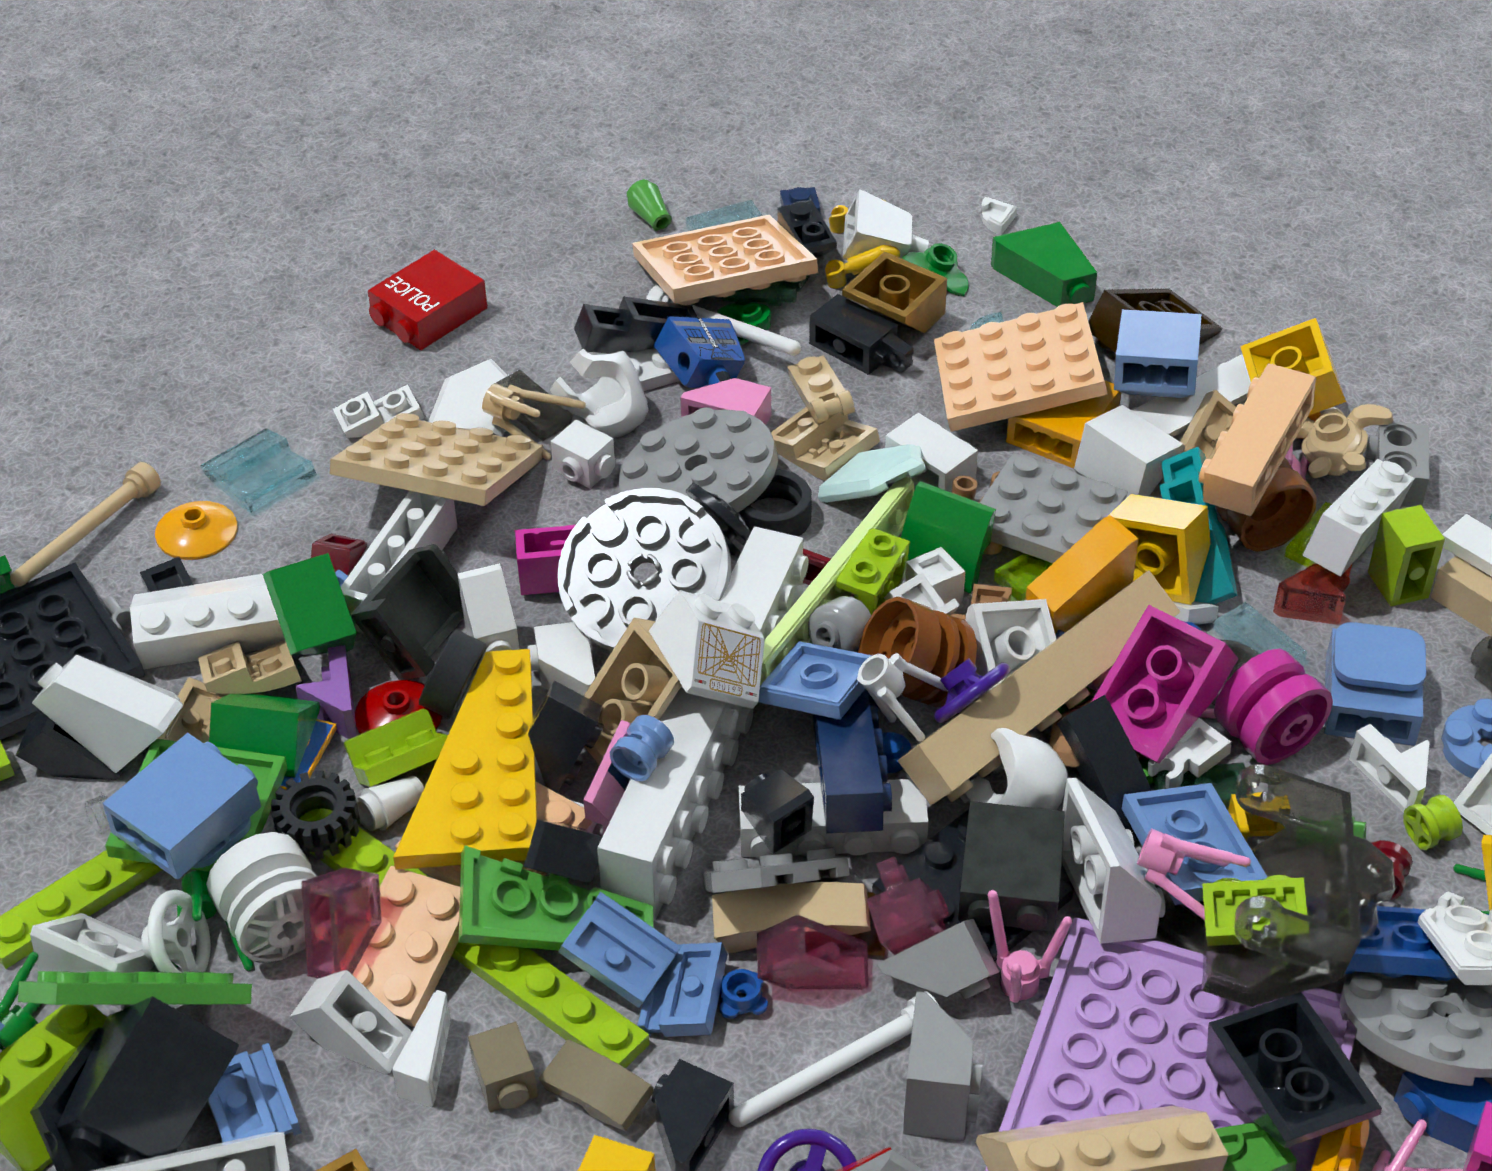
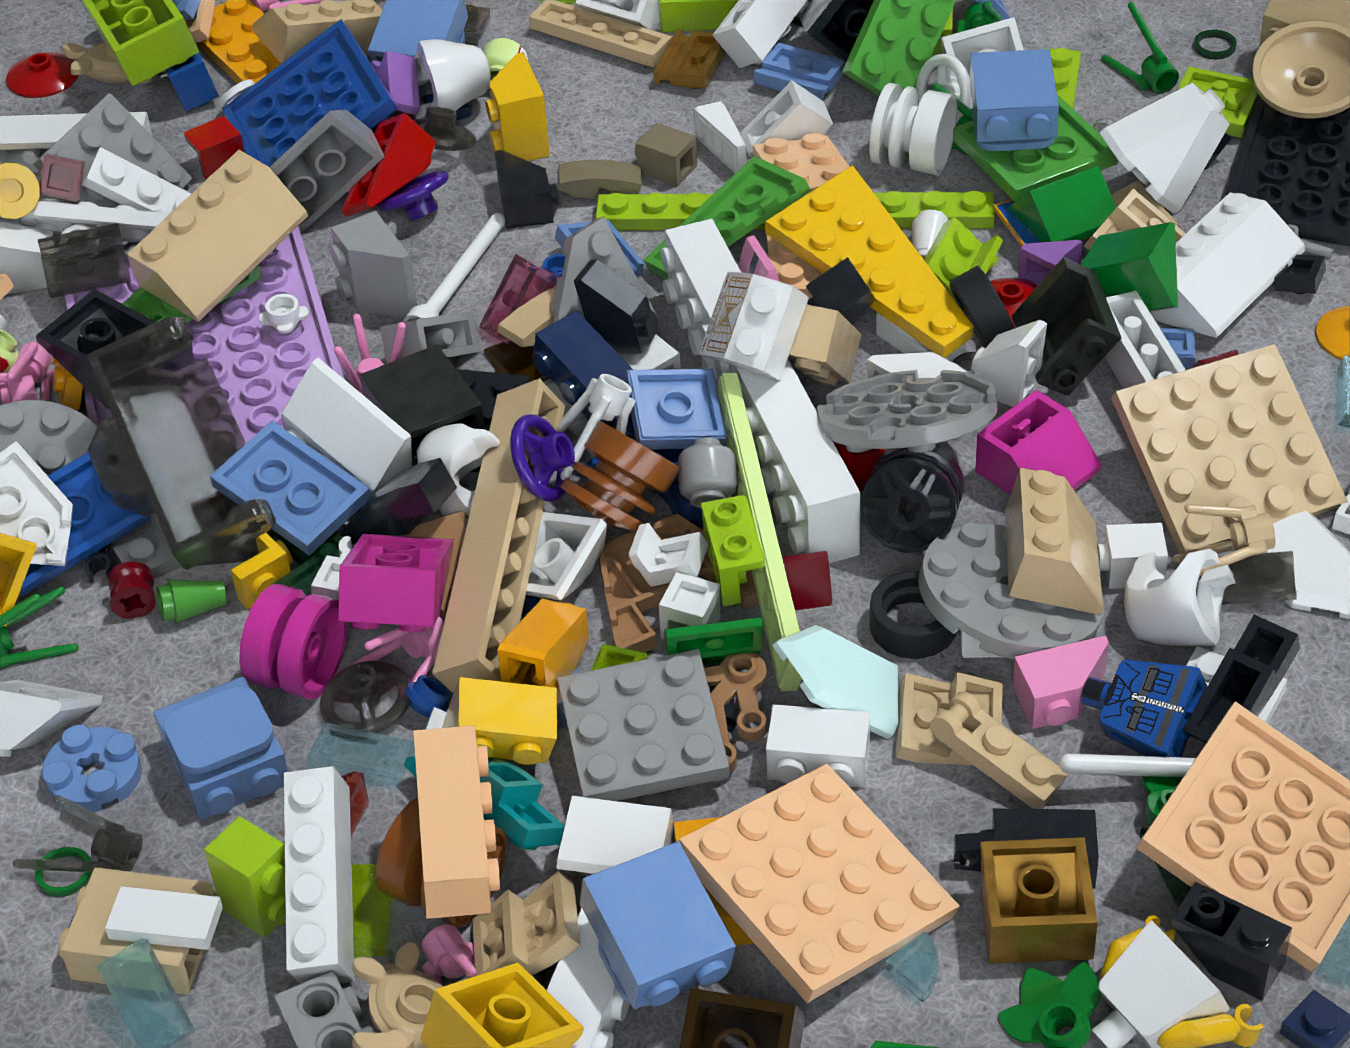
camera: 145 degrees right, 0 degrees up
(312, 795) = (950, 181): black tyre -> none
(339, 919) = (846, 126): clear pink slope -> none
(563, 850) = (747, 216): black slope -> none
(619, 949) = (646, 223): medium blue plate -> none
(638, 752) = (739, 254): medium blue wheel -> none
(655, 451) = (1051, 544): none -> tan slope
(906, 910) = (479, 346): clear pink brick -> none
(1068, 1067) = (283, 313): none -> white plate
(1166, 853) = (289, 412): bright pink plant -> none
(1227, 893) = (200, 427): lime bracket -> none
(1394, 773) = (162, 676): white slope -> none
(1433, 822) = (108, 651): lime wheel -> none

